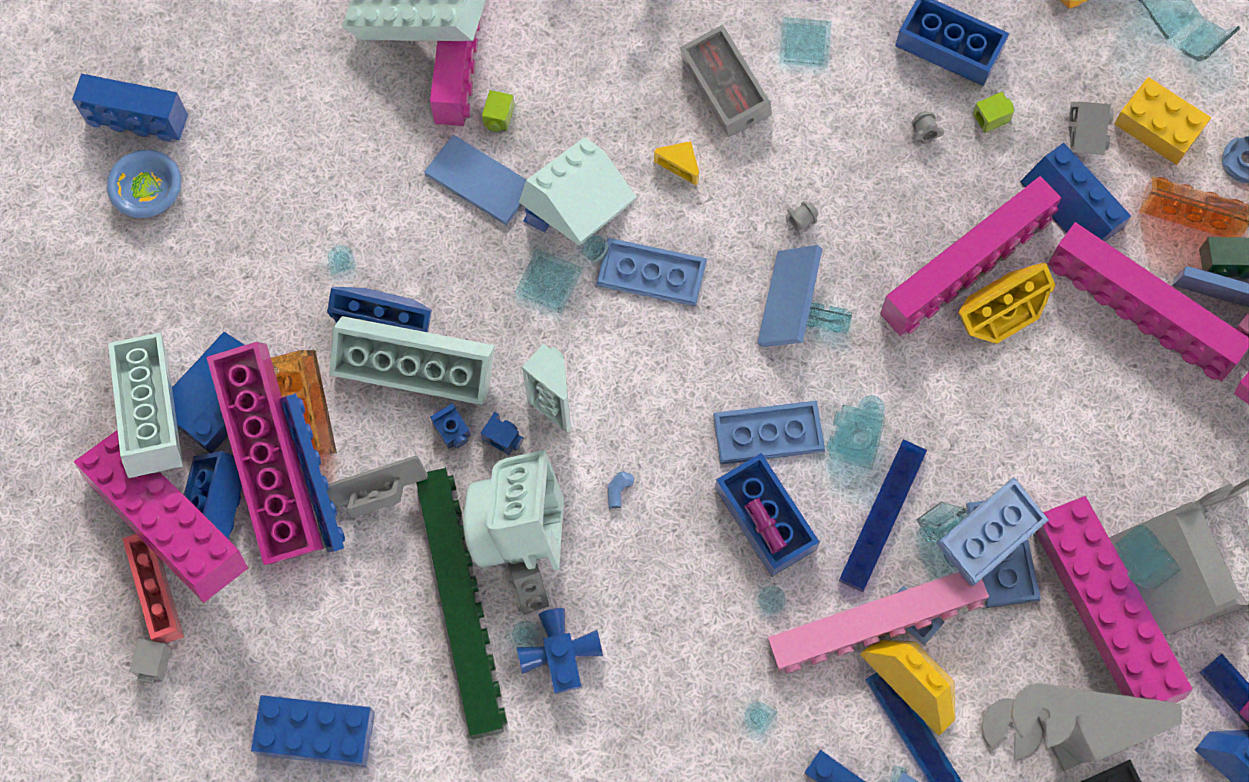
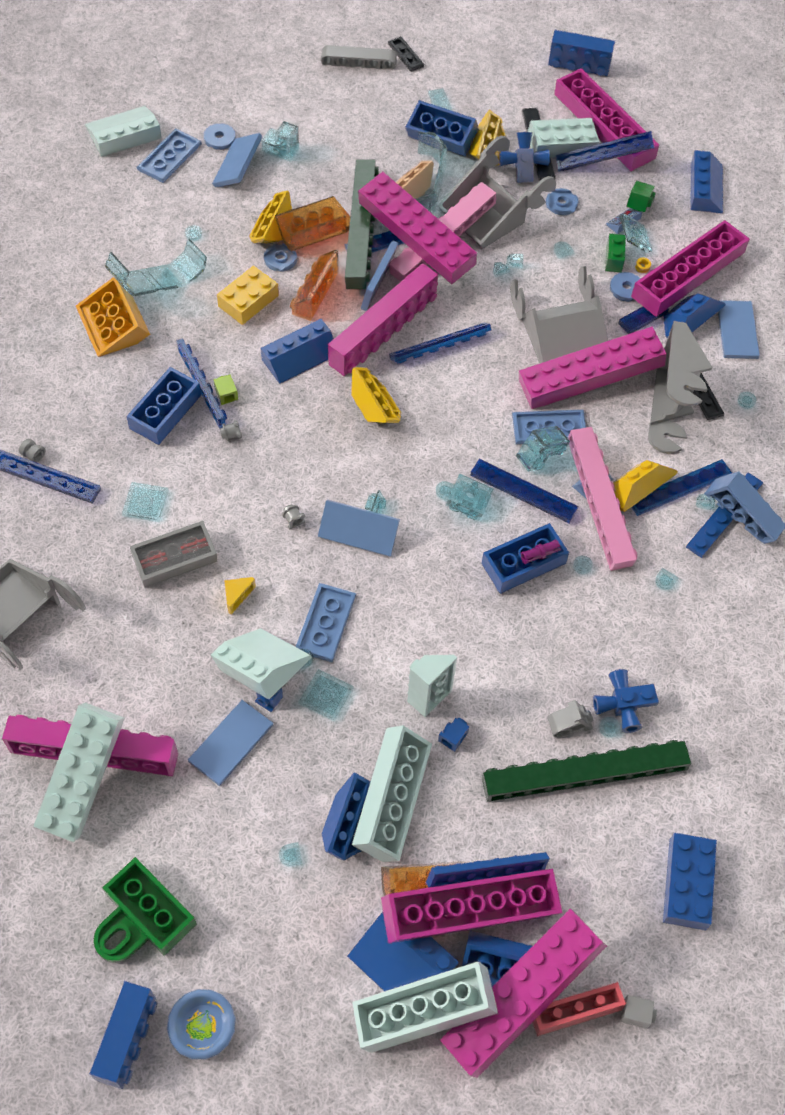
camera: 90 degrees left, 10 degrees down
(269, 110) = (143, 912): none -> green brick
(376, 487) = (500, 822): light grey bracket -> none
(456, 437) = (445, 777): blue brick -> none
(498, 111) = (172, 722): lime brick -> none
(514, 514) = (528, 715): light aqua brick -> none
(615, 487) = (497, 658): medium blue arm -> none
(770, 431) = (459, 556): medium blue tile -> none
(970, 256) = (341, 414): dark pink brick -> none
(992, 531) = (548, 418): medium blue tile -> none
(993, 84) = (206, 389): none -> clear blue plate
(1090, 127) = (249, 331): light grey brick -> none
(1131, 393) = (433, 345): none -> clear blue plate
(1146, 558) = (570, 337): clear light blue brick -> none

